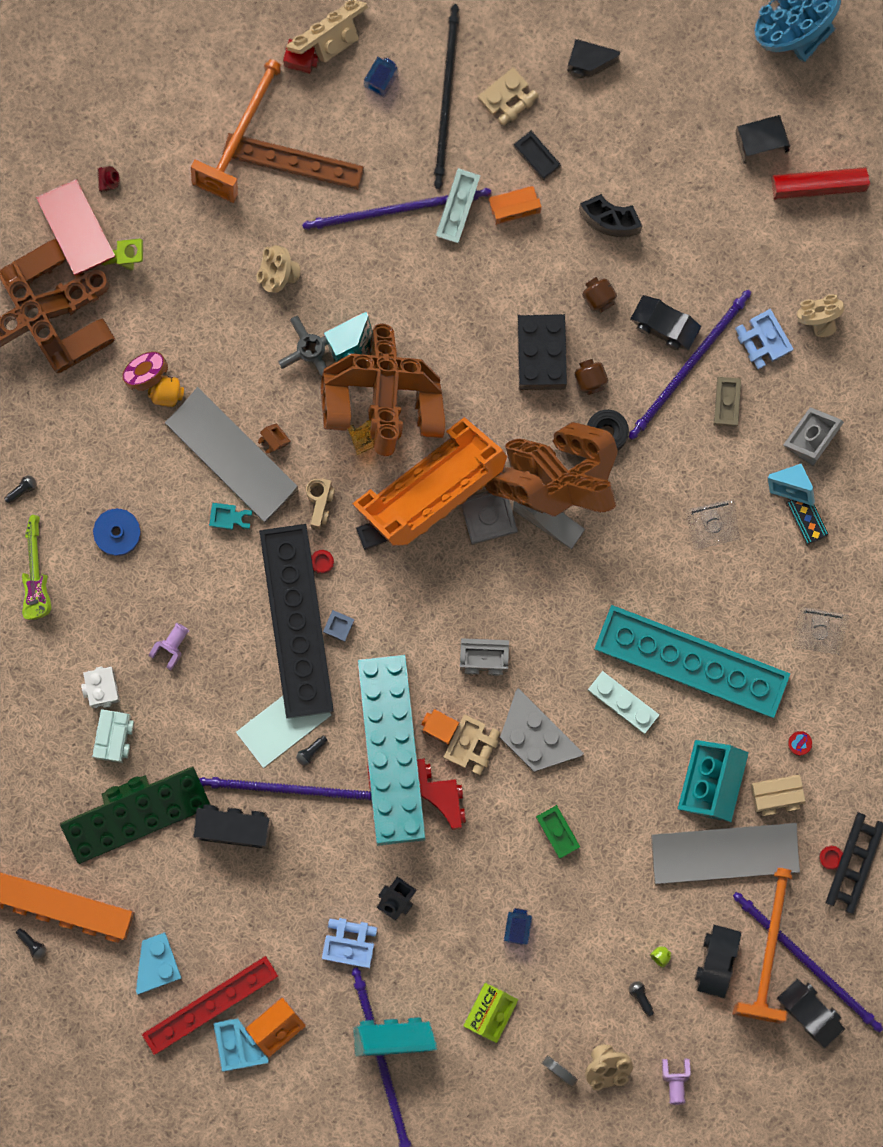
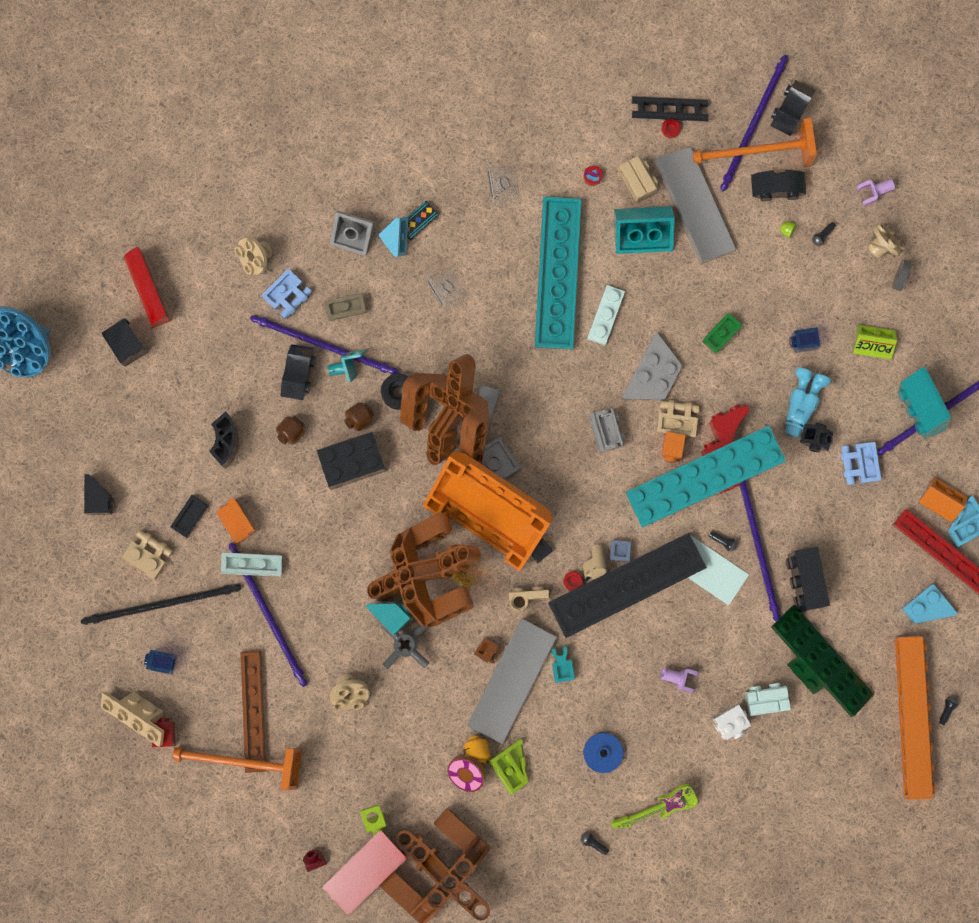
camera: 110 degrees left, 0 degrees up
(136, 423) = (511, 767): none -> lime wing
(329, 590) = (596, 566): none -> tan piece
(442, 898) = (803, 404): none -> medium azure piece
(656, 381) = (347, 365): none -> teal bracket

